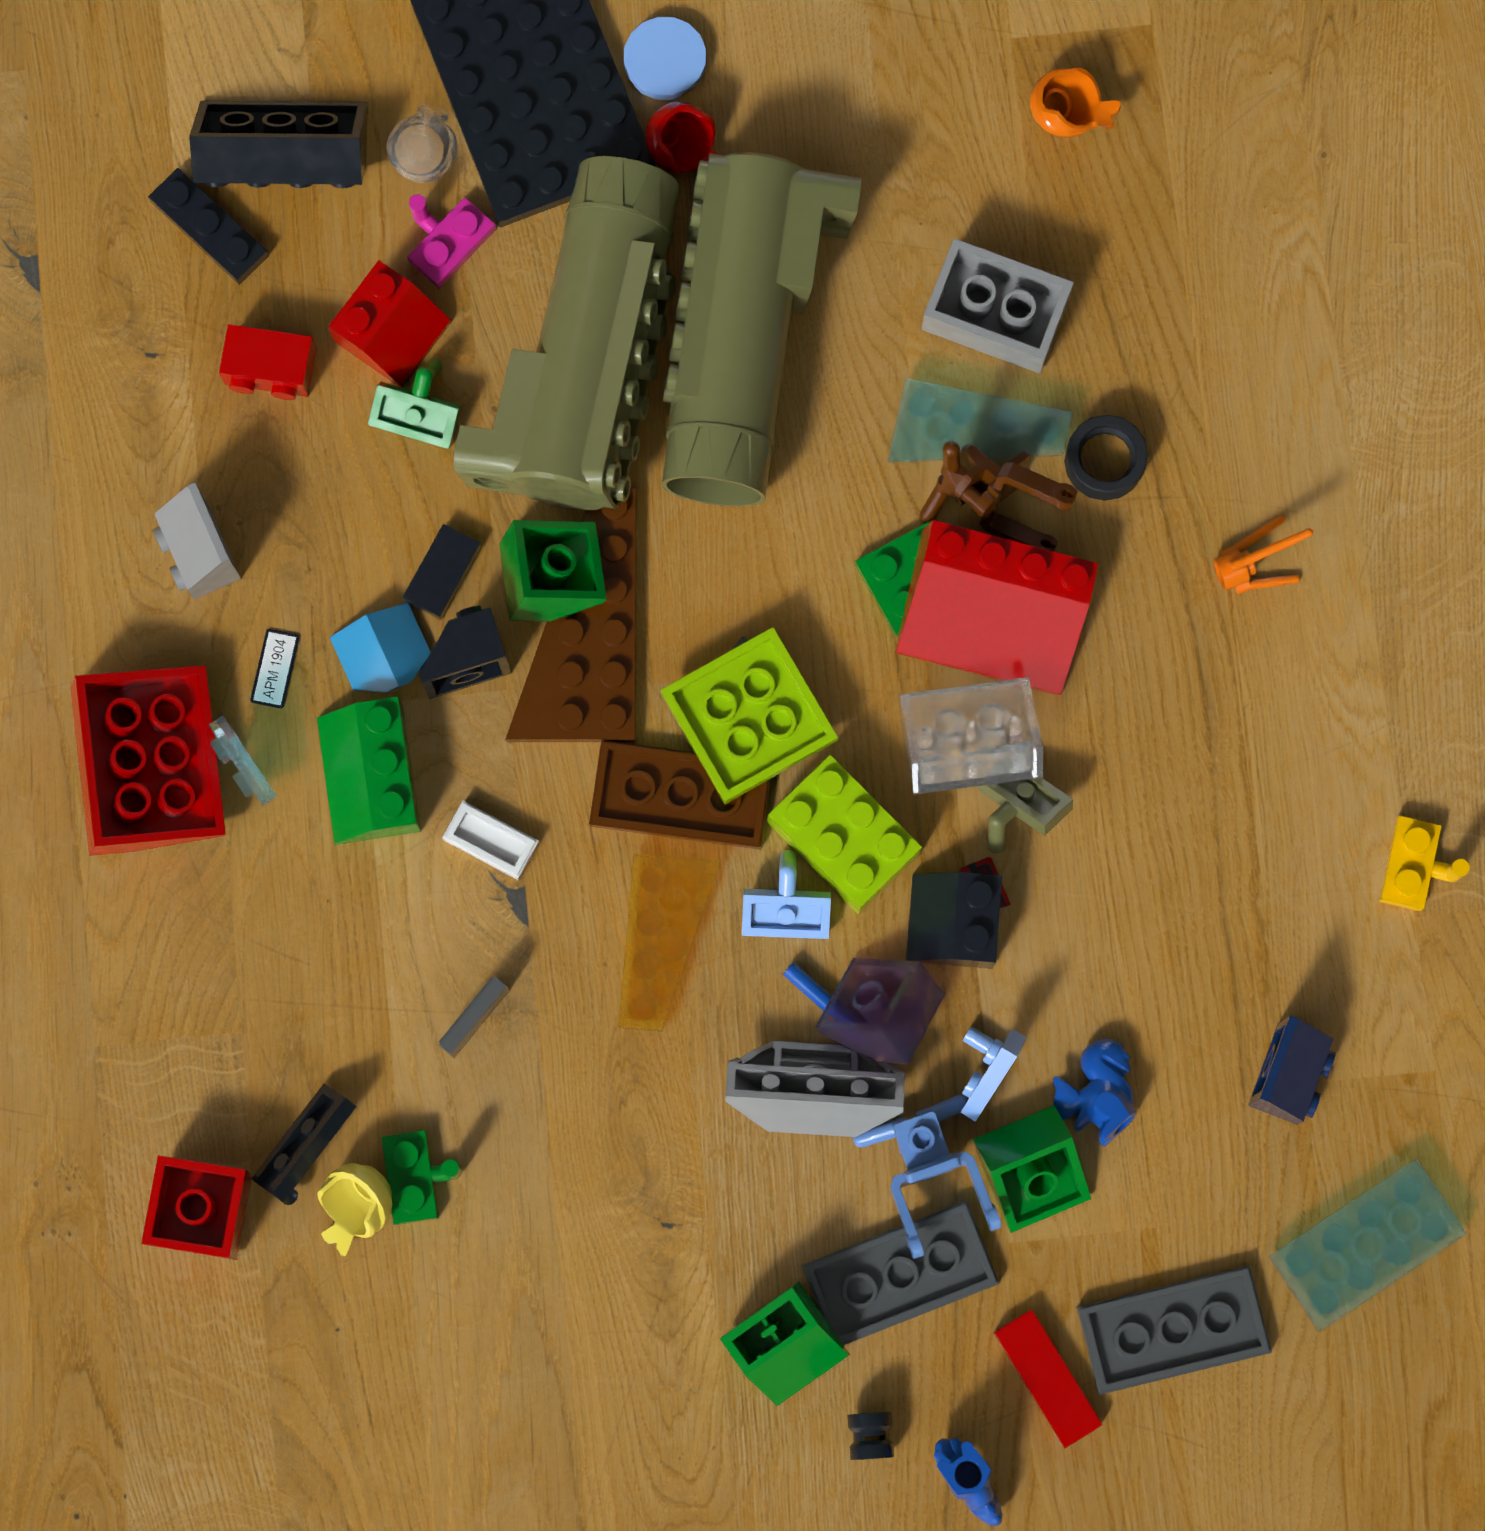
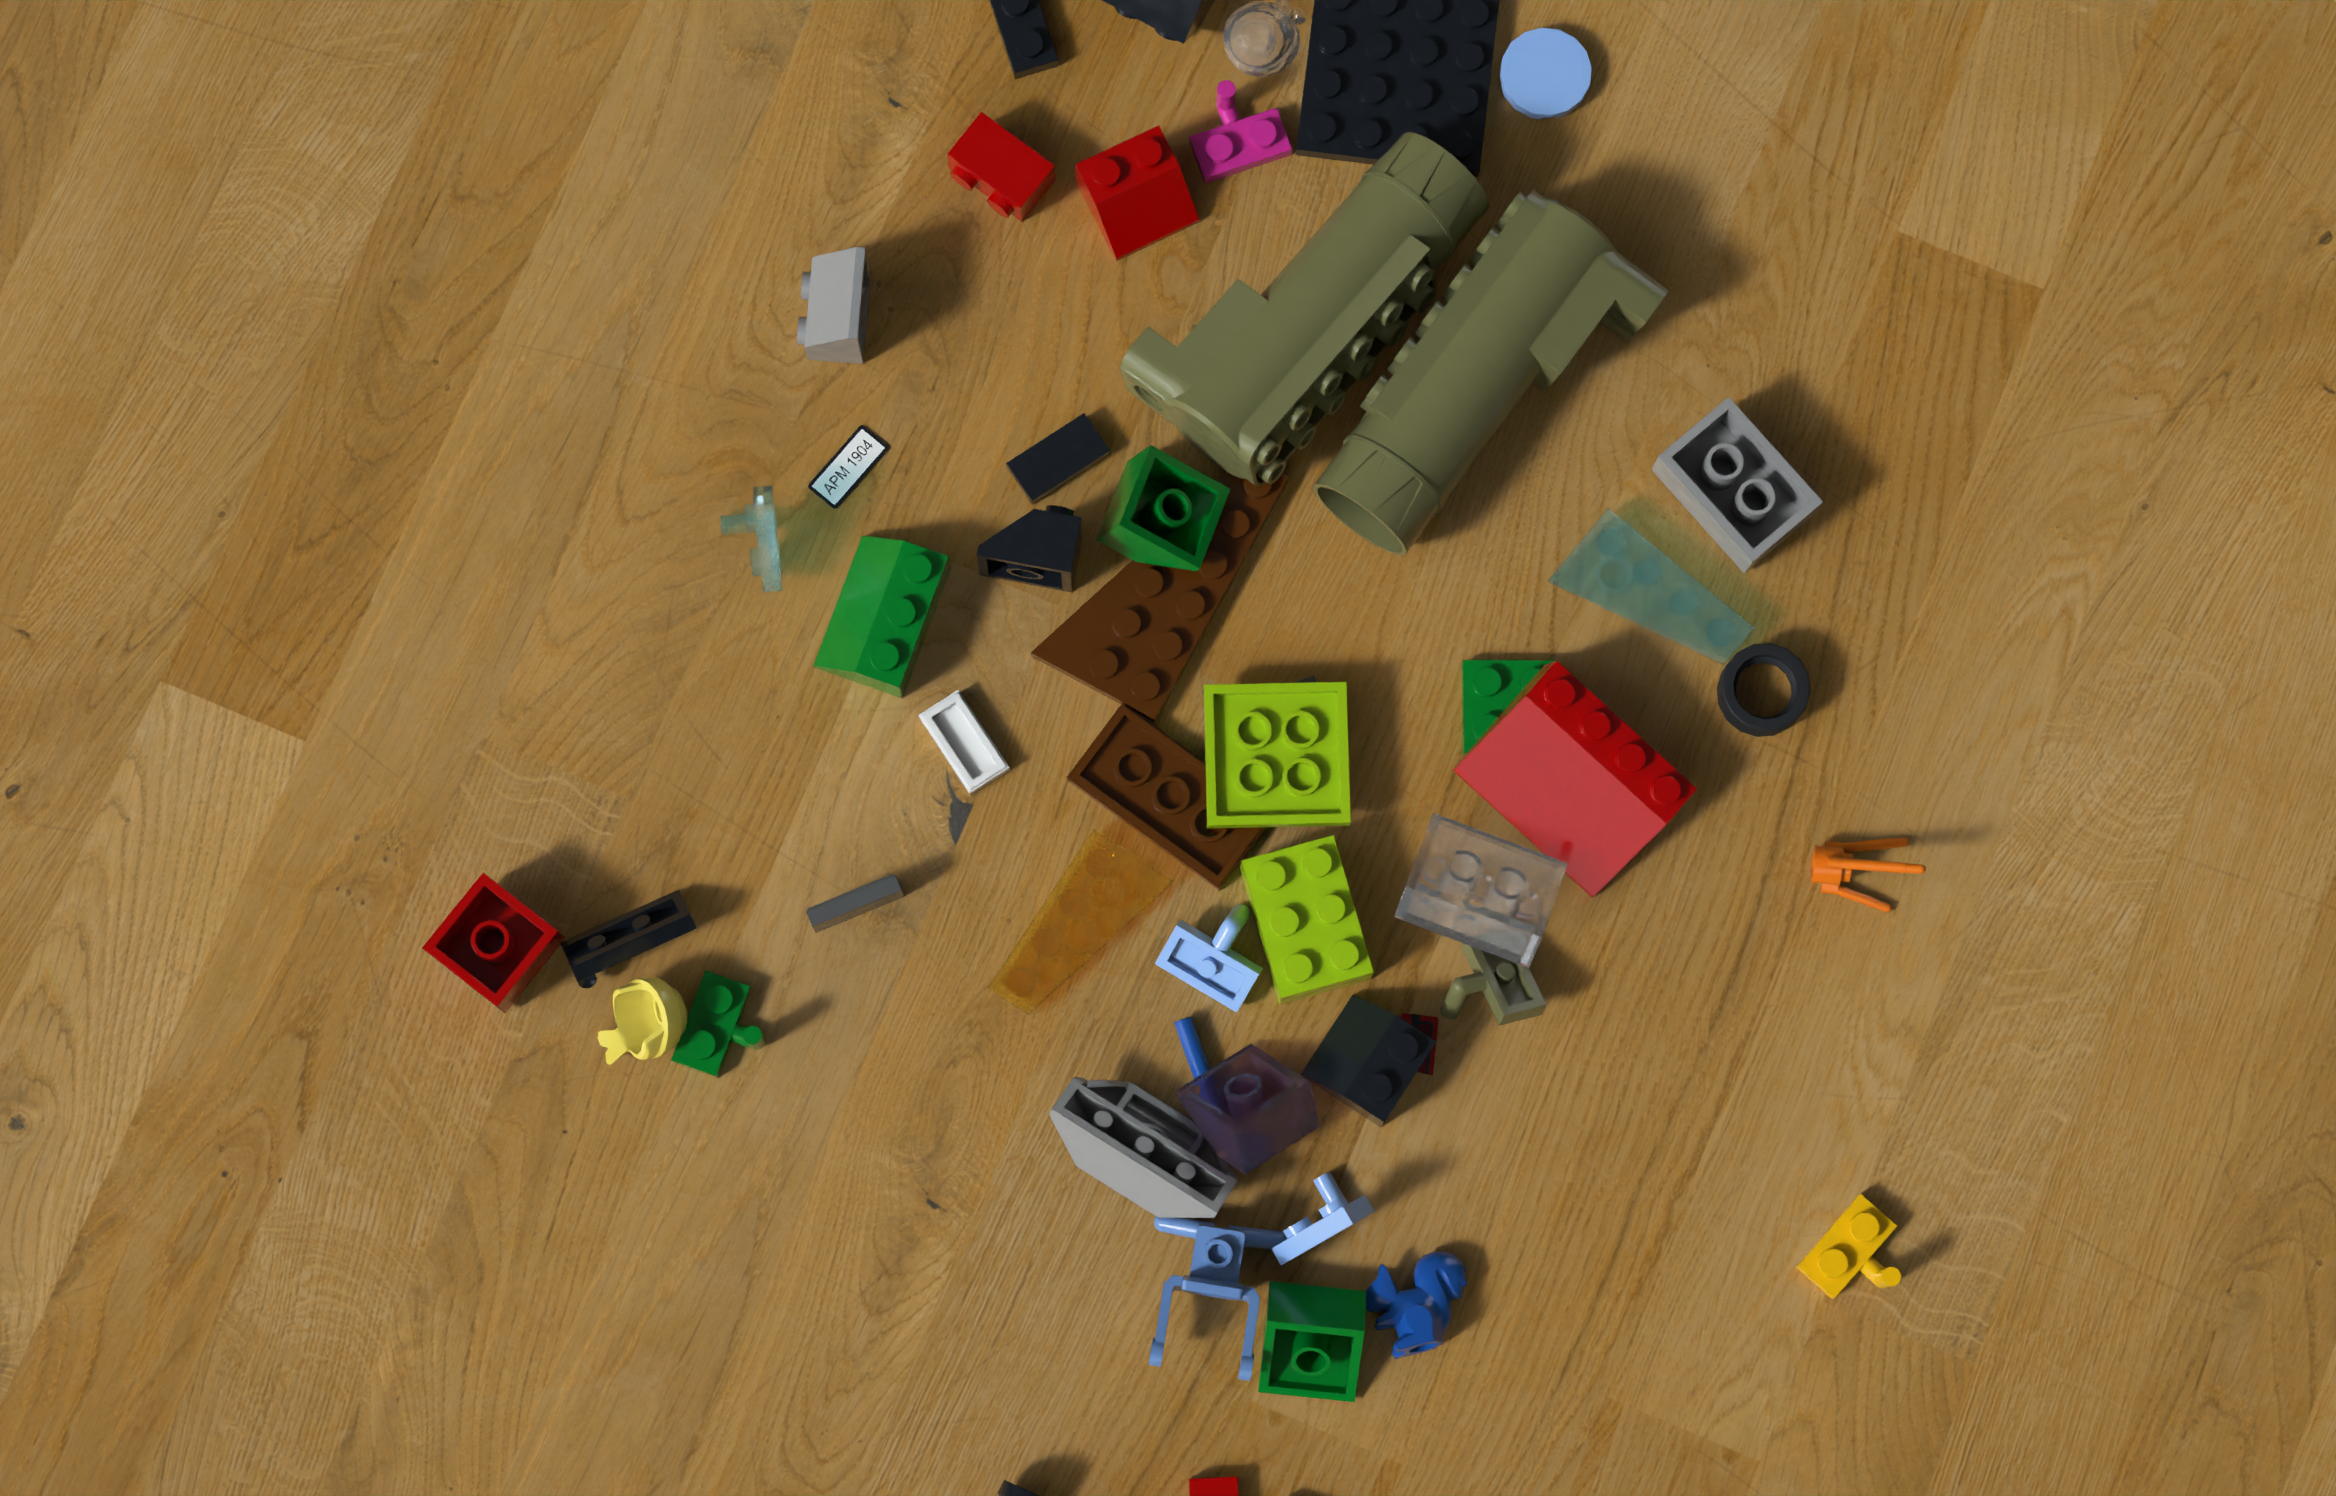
camera: 25 degrees right, 0 degrees up
(146, 759) = (678, 489): red slope -> none
(382, 649) = (959, 503): dark azure slope -> none
(414, 411) = (1115, 289): plate -> none
(680, 137) = (1516, 158): red hat -> none
(784, 1344) = (980, 1379): green slope -> none
(883, 1285) = (1106, 1375): dark grey tile -> none
(983, 485) = (1626, 654): reddish brown piece -> none
(1070, 103) = (1918, 325): orange hat -> none
(1292, 1071) = (1617, 1385): dark blue slope -> none

